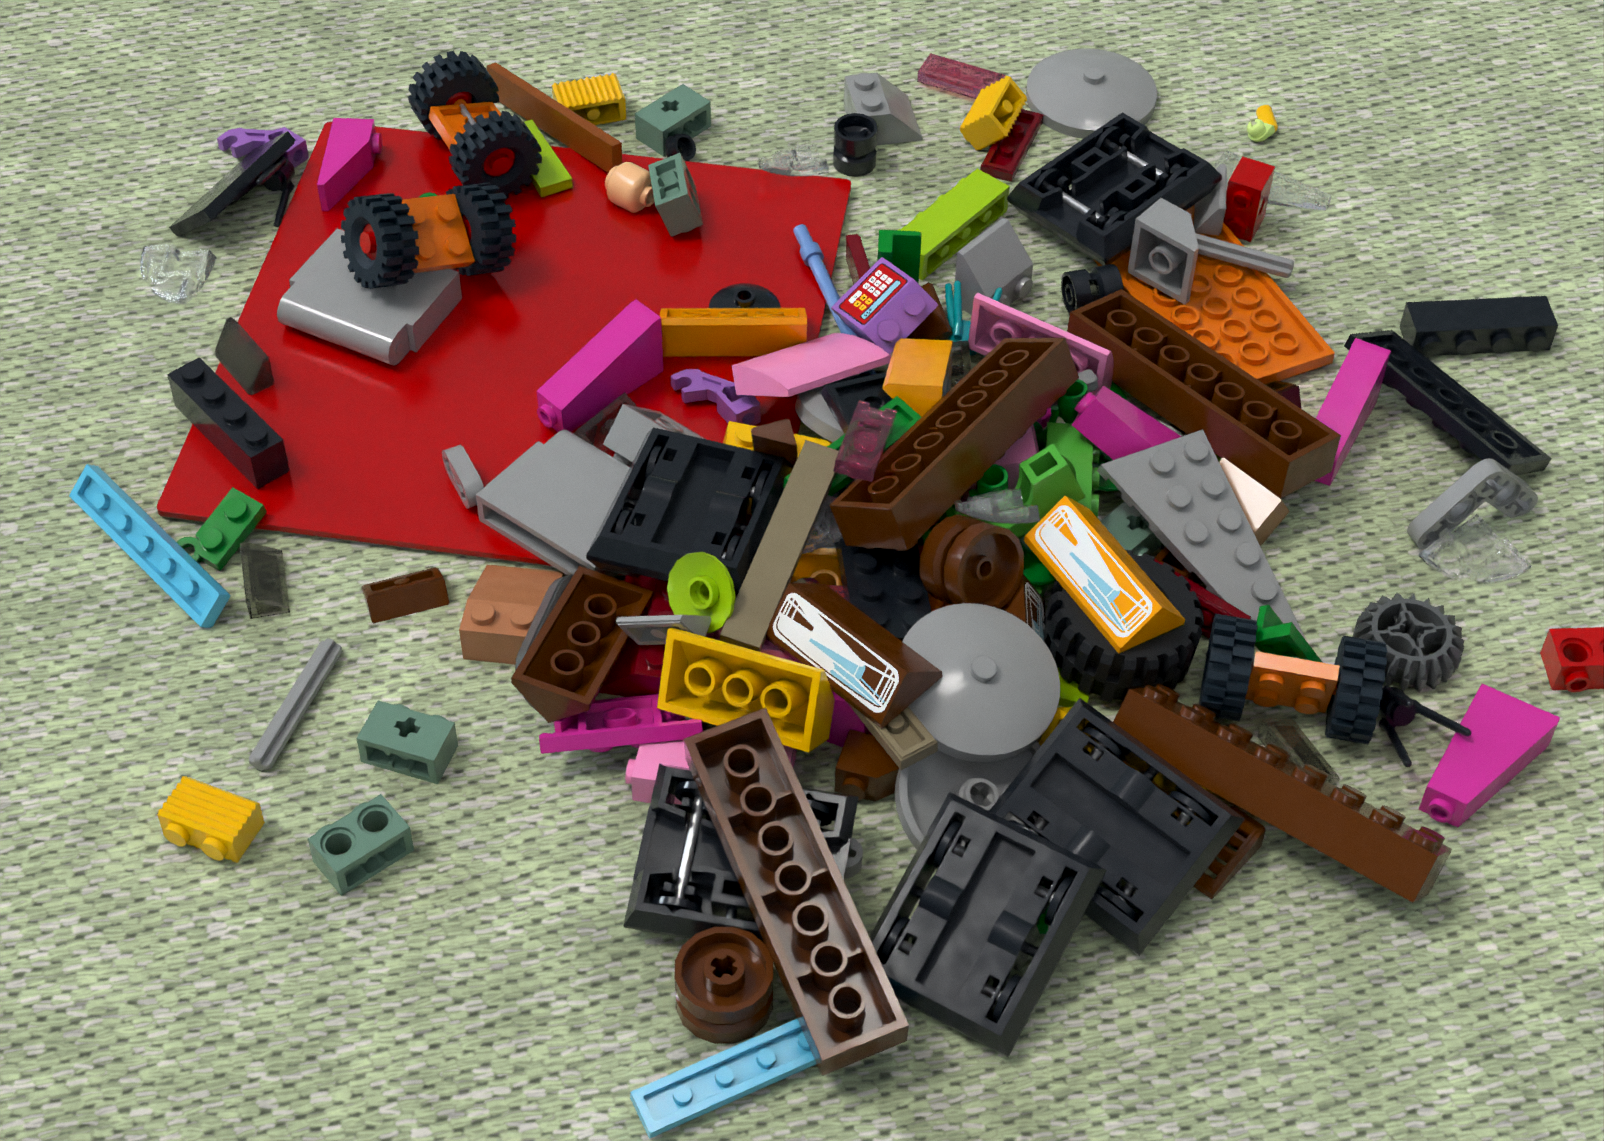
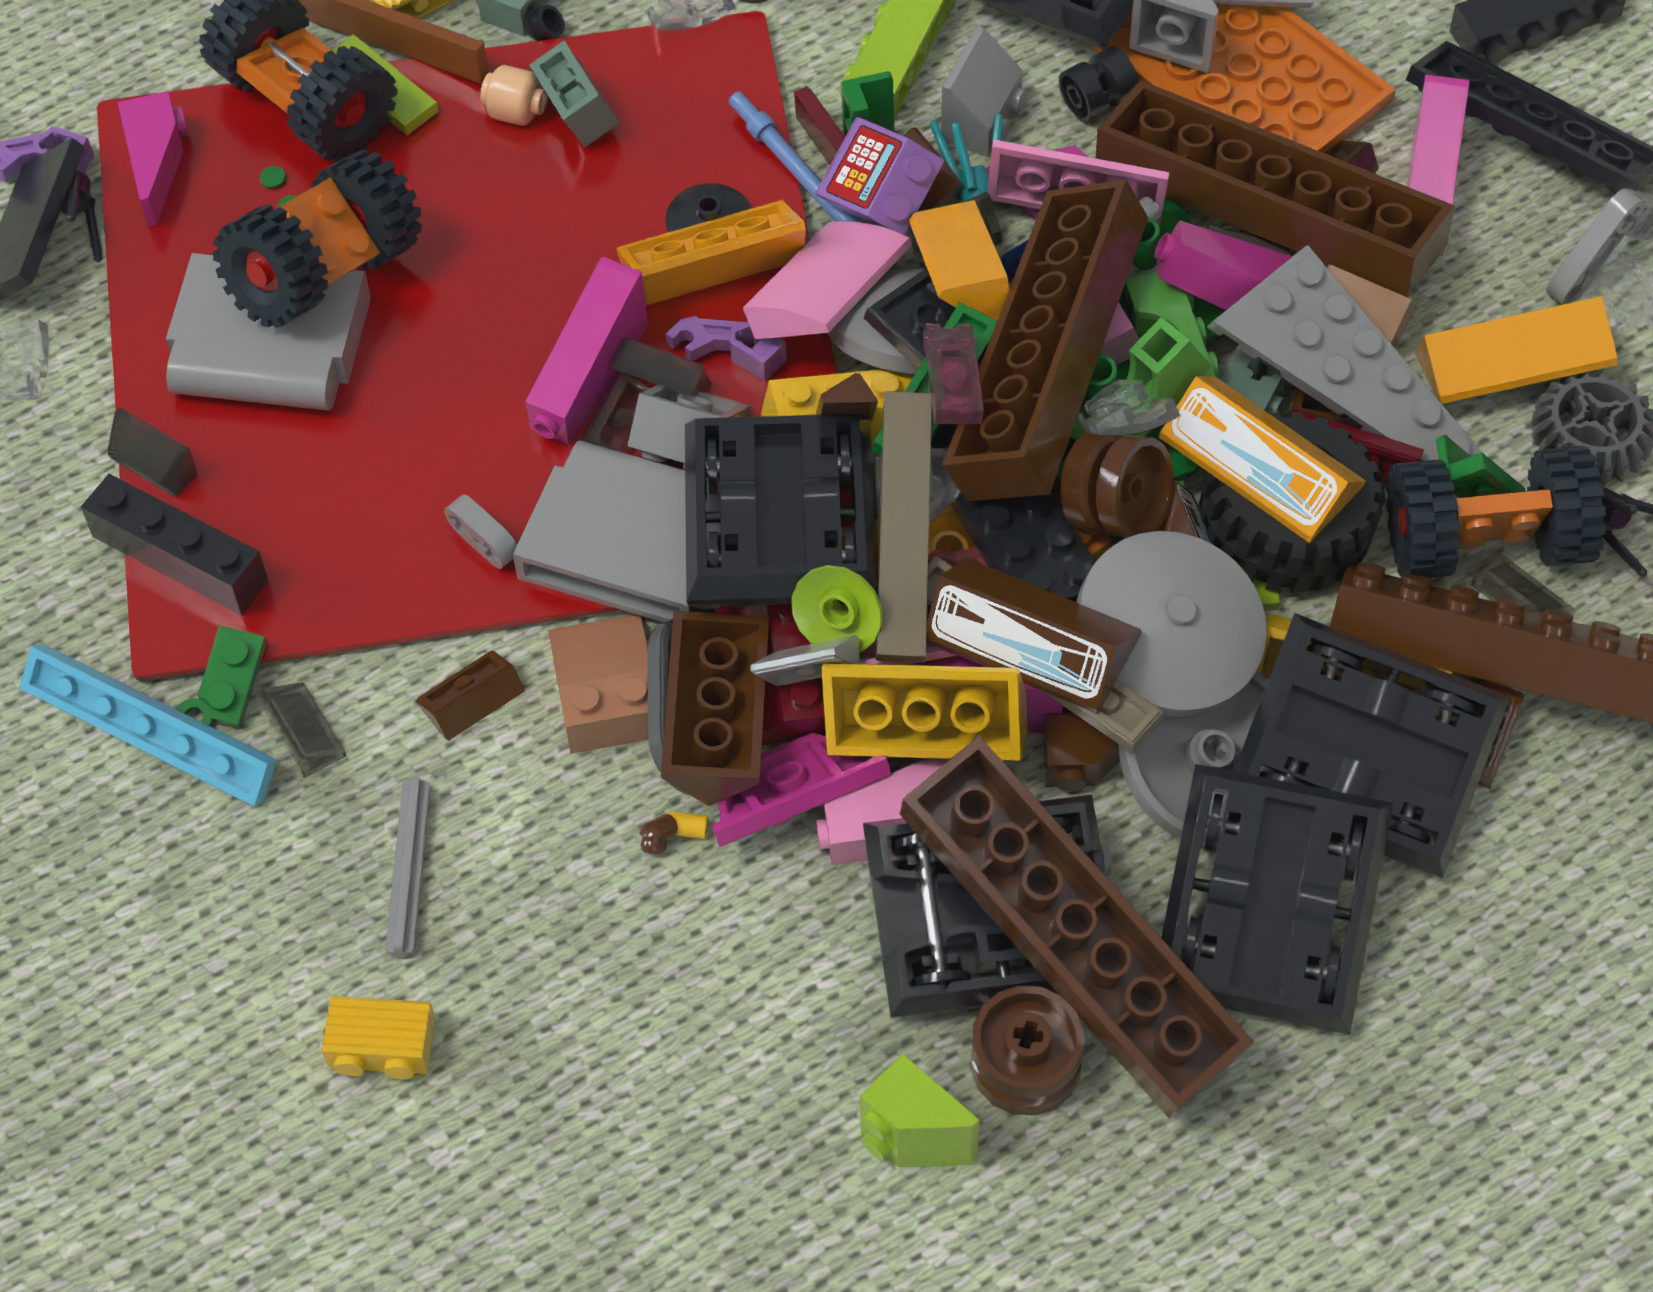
camera: 15 degrees left, 10 degrees up
(363, 848) = (571, 1016): sand green brick -> none
(407, 741) = (537, 887): sand green brick -> none
(515, 731) = (672, 824): none -> arm
(603, 1009) = (916, 1120): none -> lime slope
(655, 397) = (660, 368): none -> clear smoke slope
(722, 1078) = (1064, 1153): medium azure plate -> none
(1361, 562) = (1517, 350): none -> light orange slope

